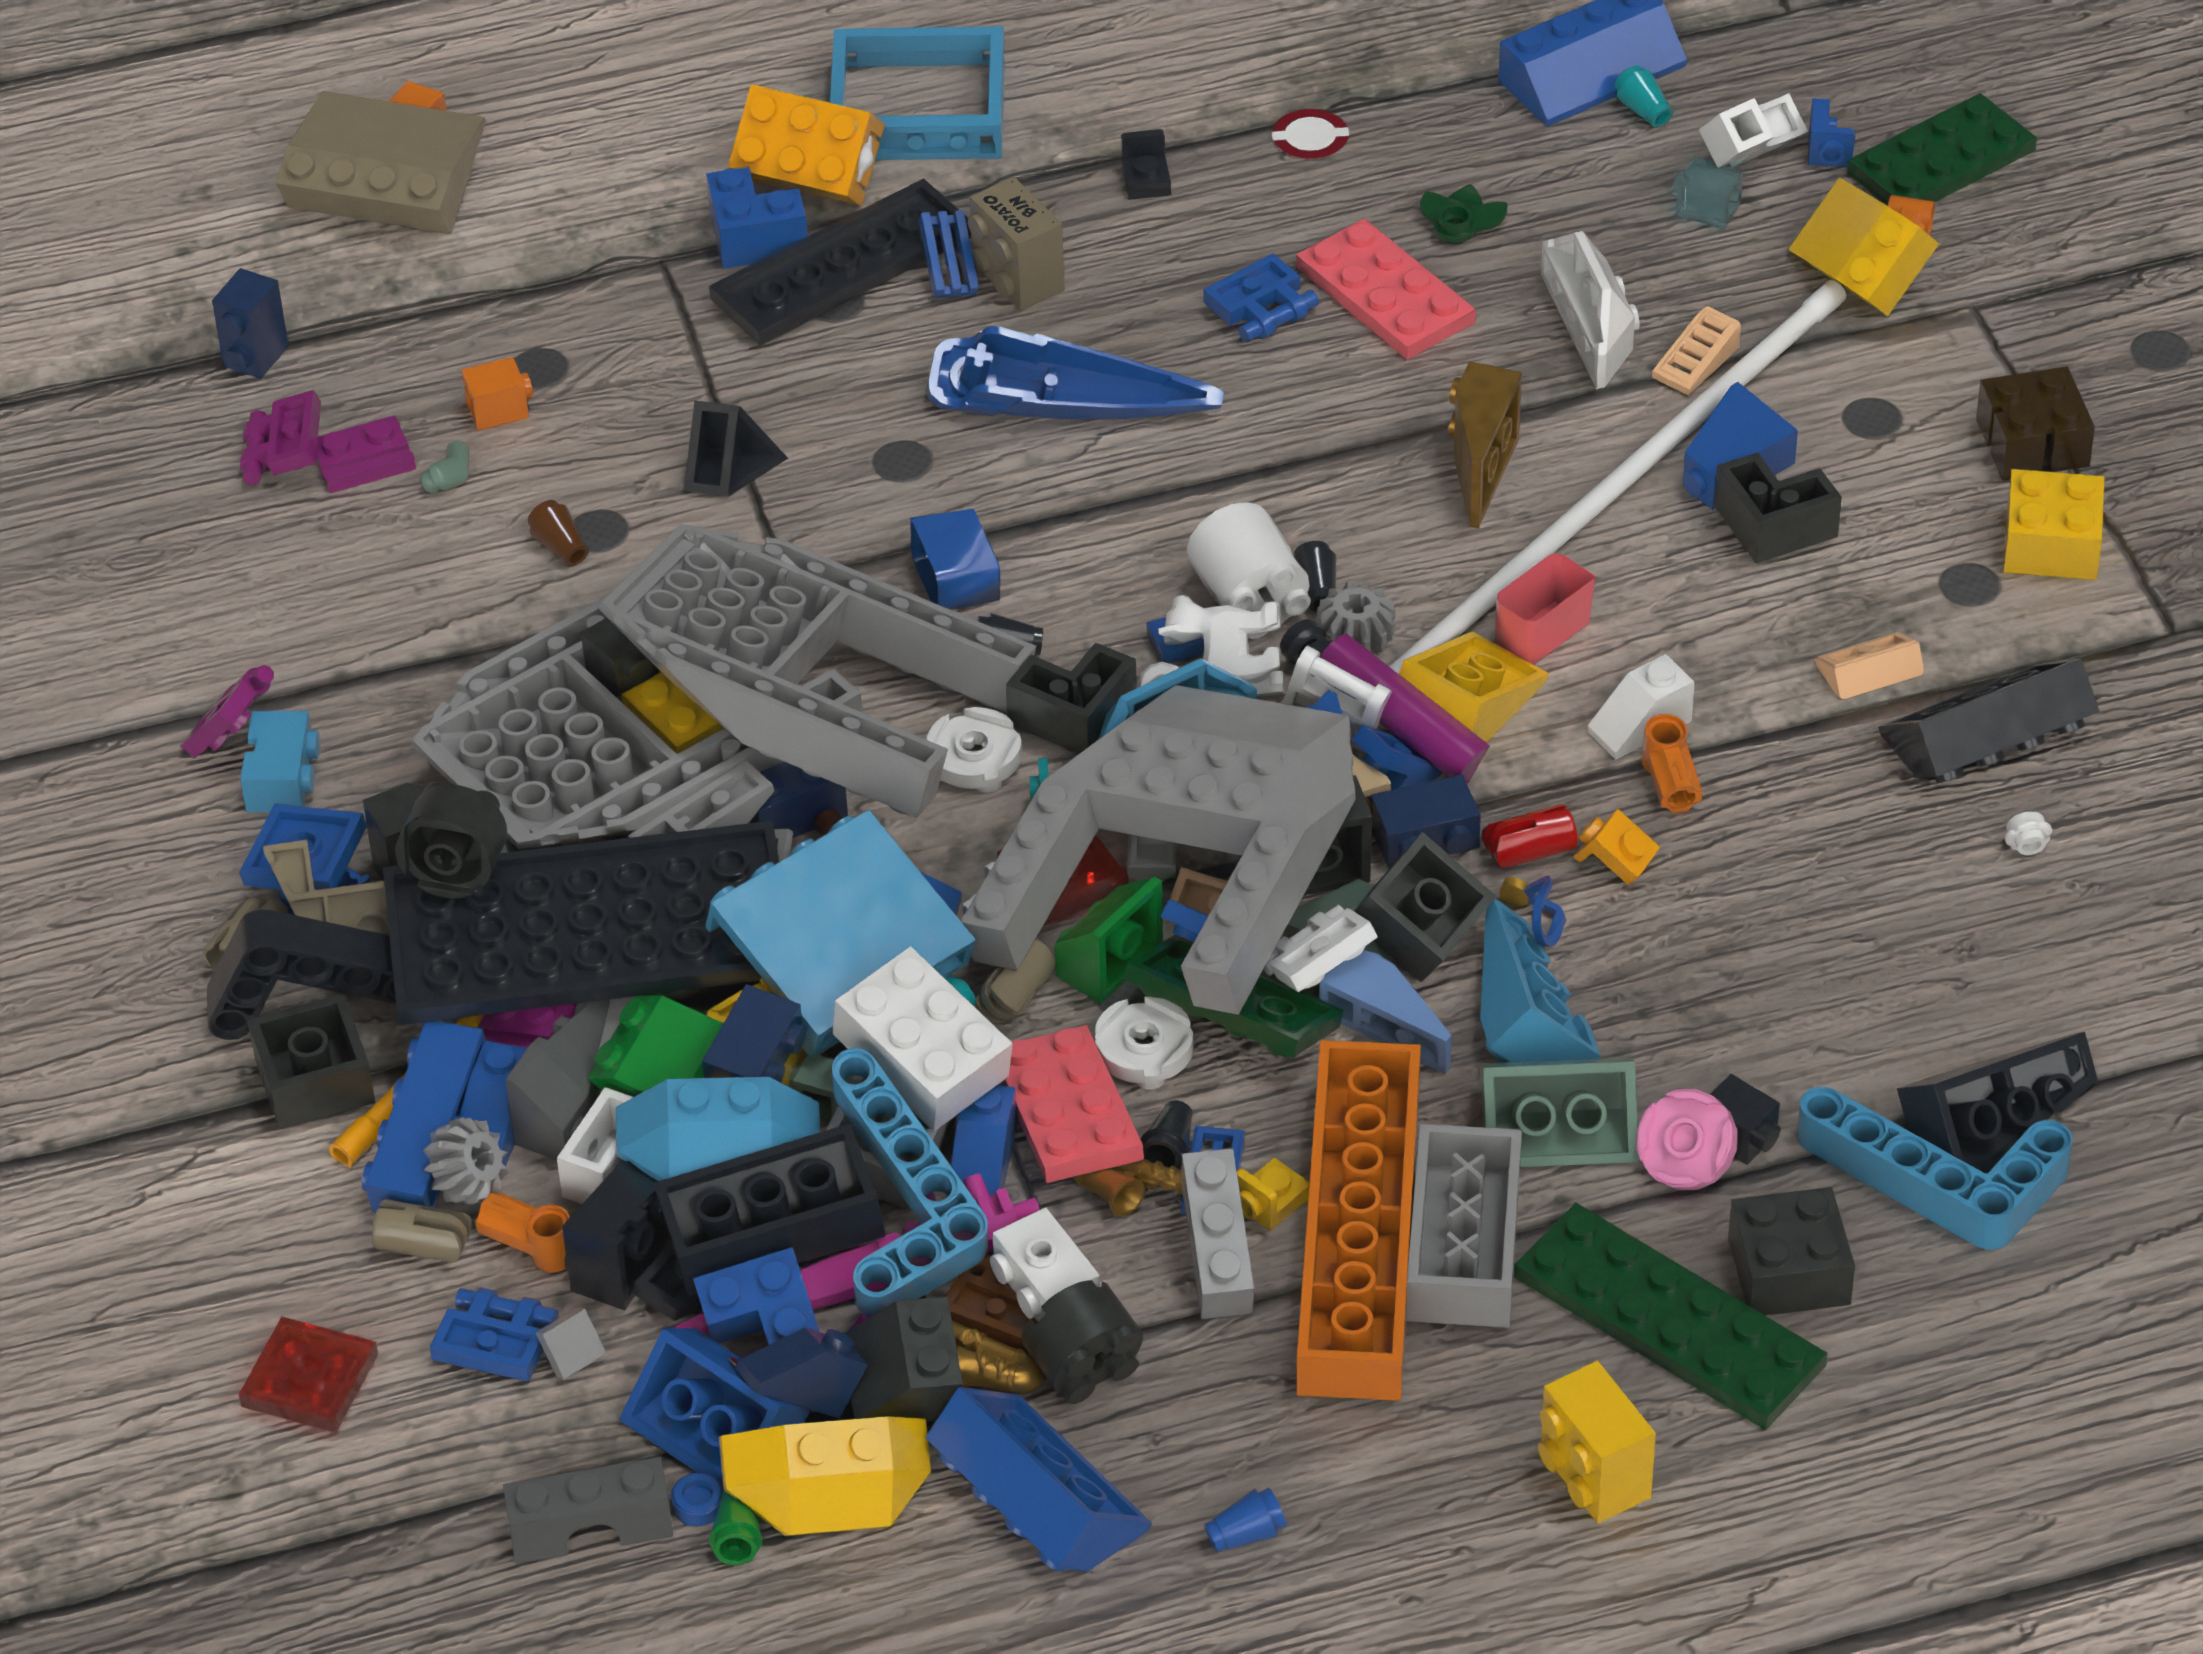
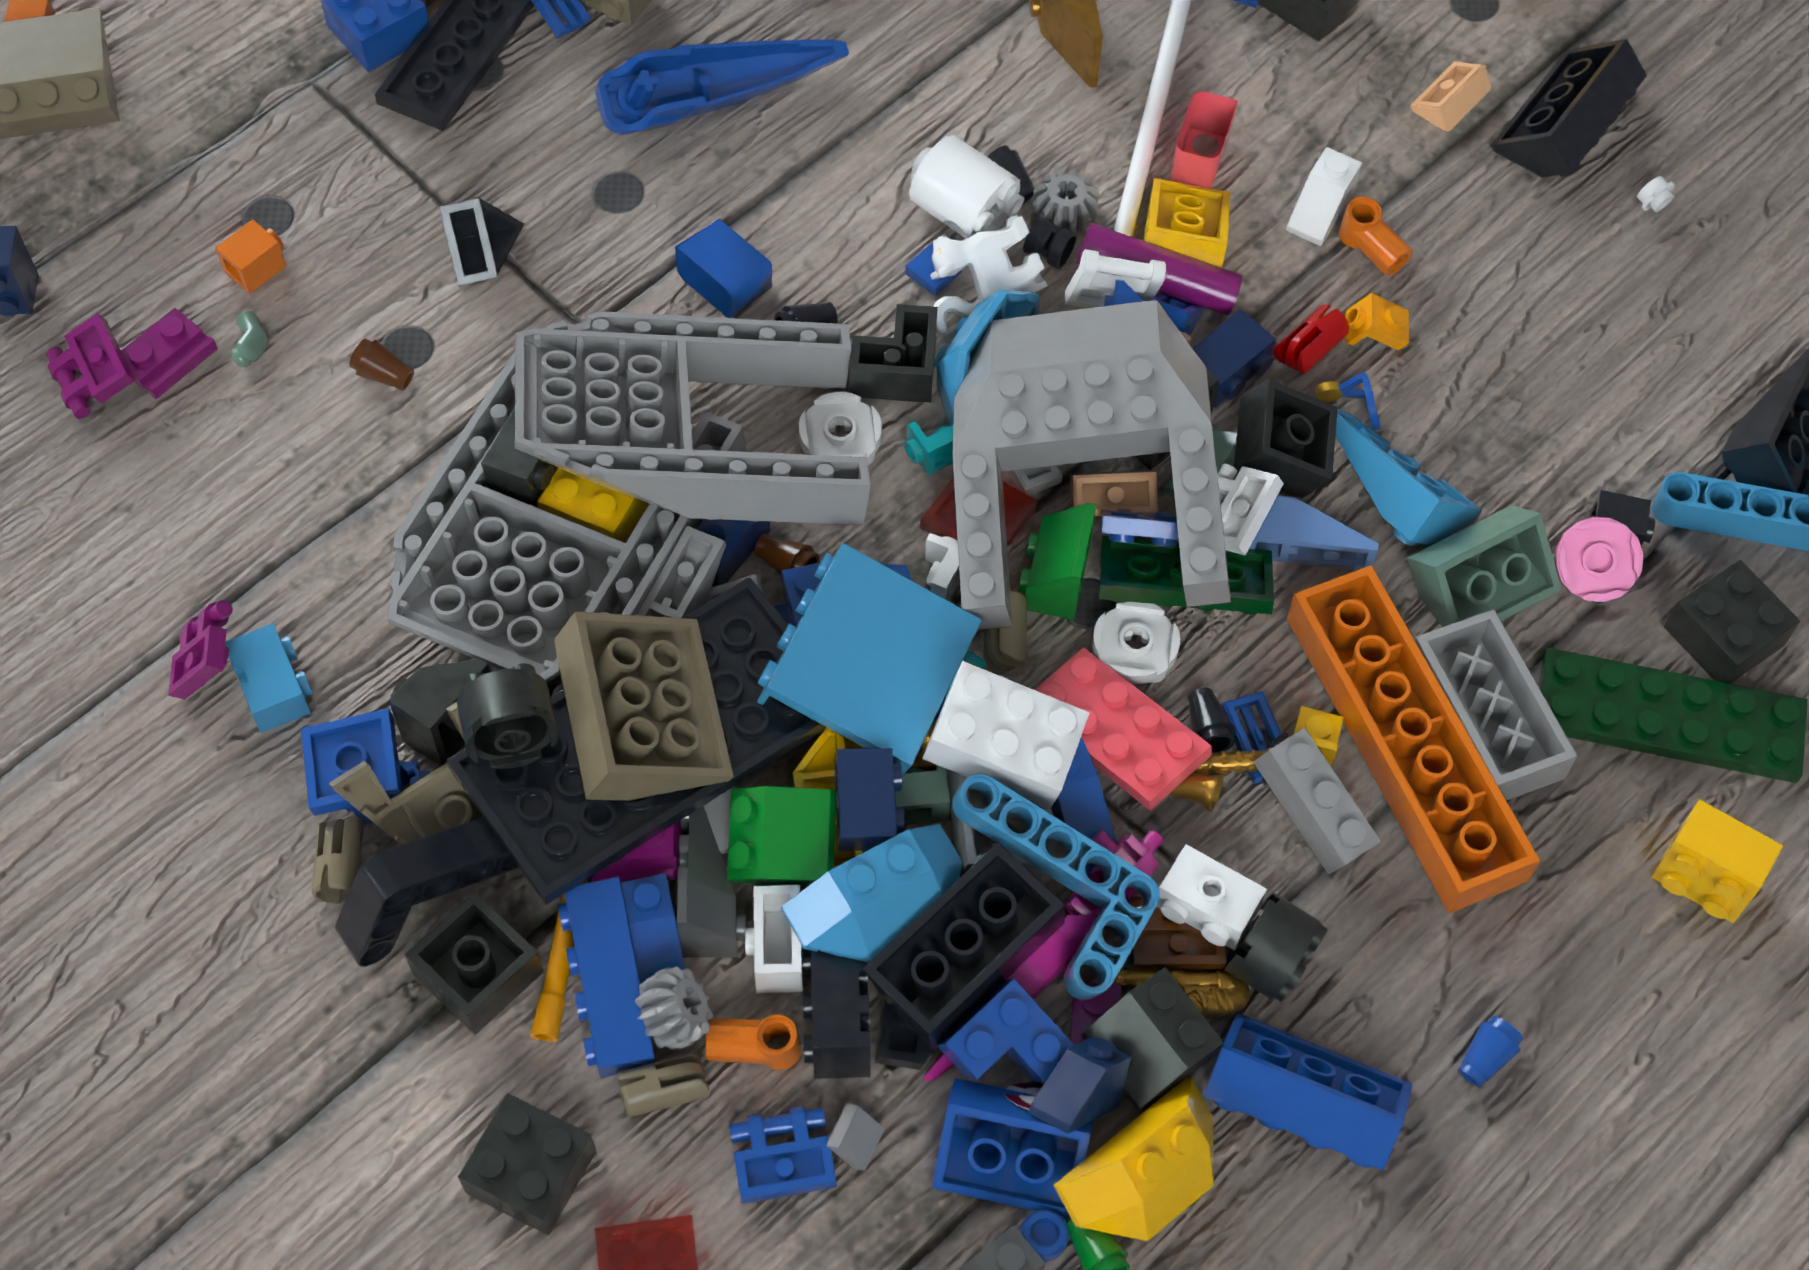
camera: 30 degrees left, 15 degrees up
(255, 1242) = (527, 1164): none -> pearl dark grey brick
(589, 882) = (640, 705): none -> dark tan slope

